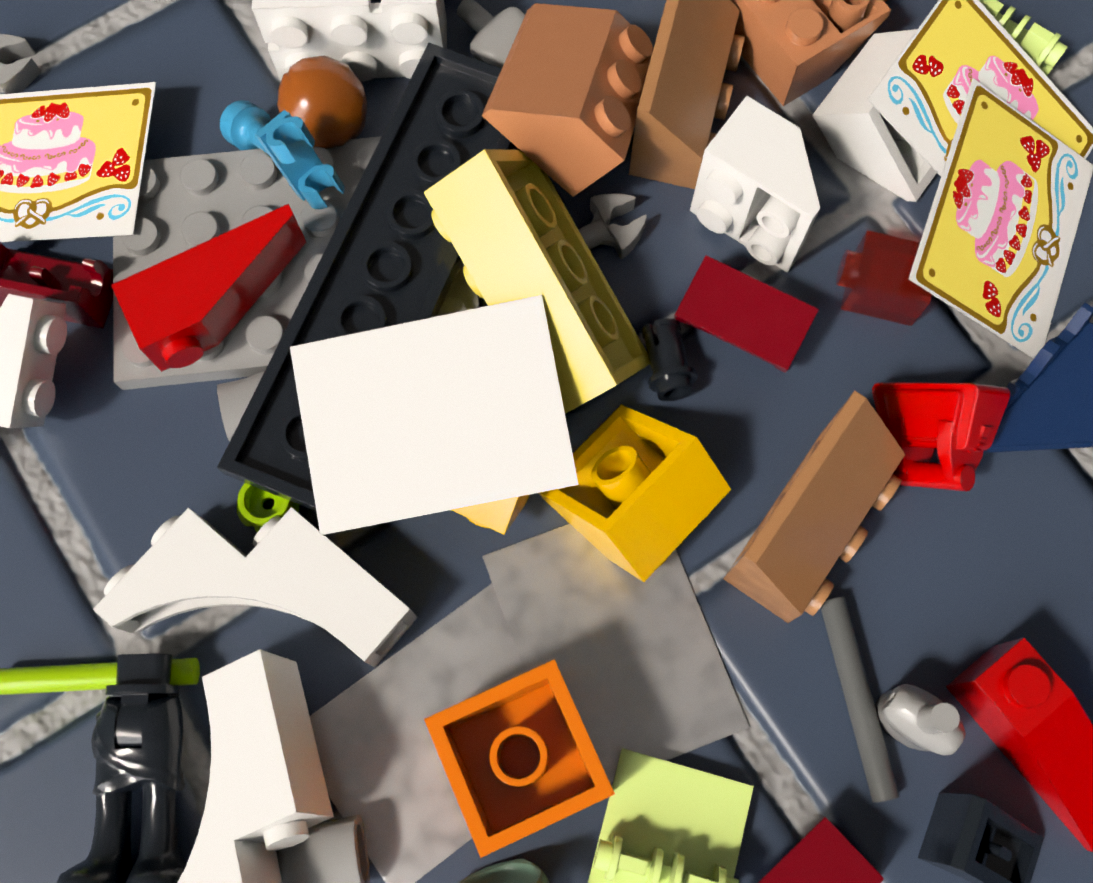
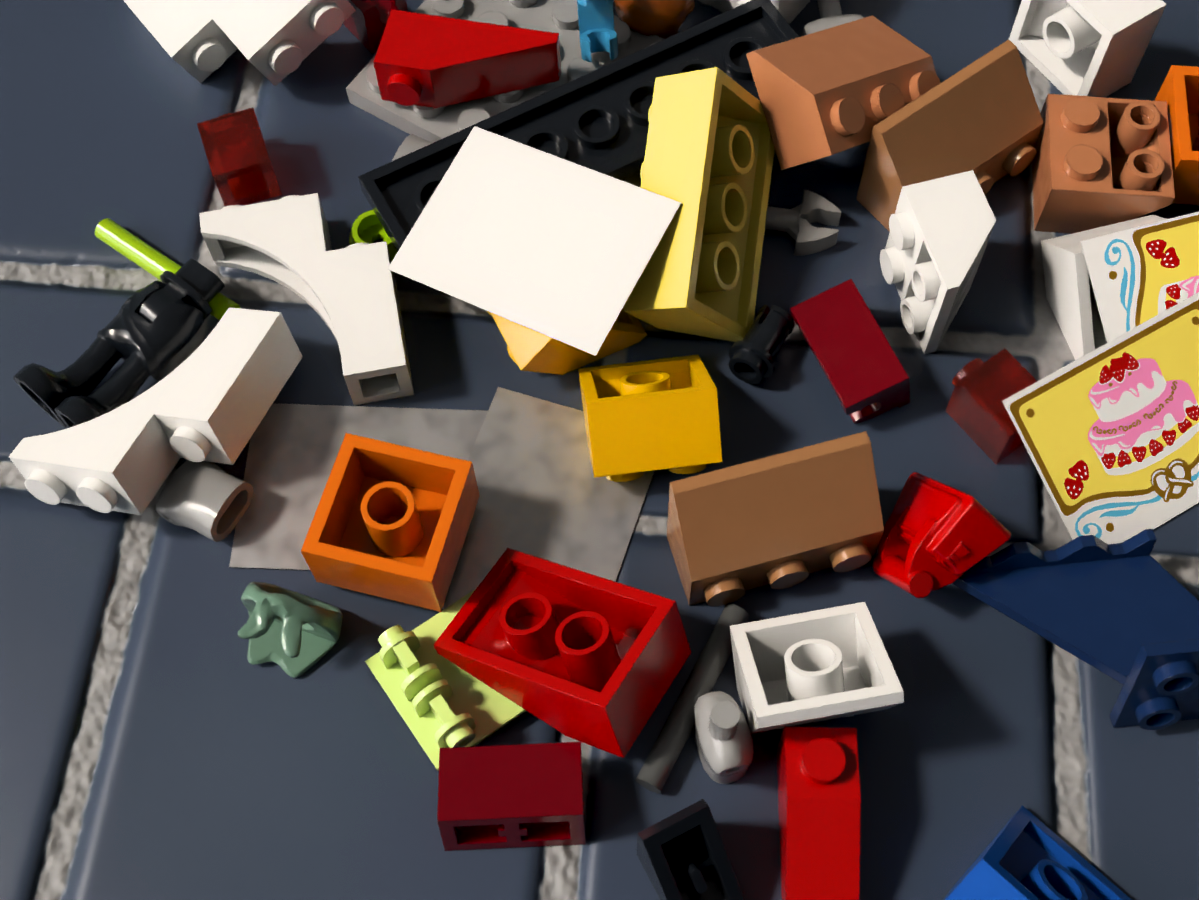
camera: 40 degrees right, 10 degrees down
(73, 522) = (239, 158): none -> clear red brick
(741, 746) = (569, 647): none -> red slope
(960, 620) = (812, 668): none -> white slope

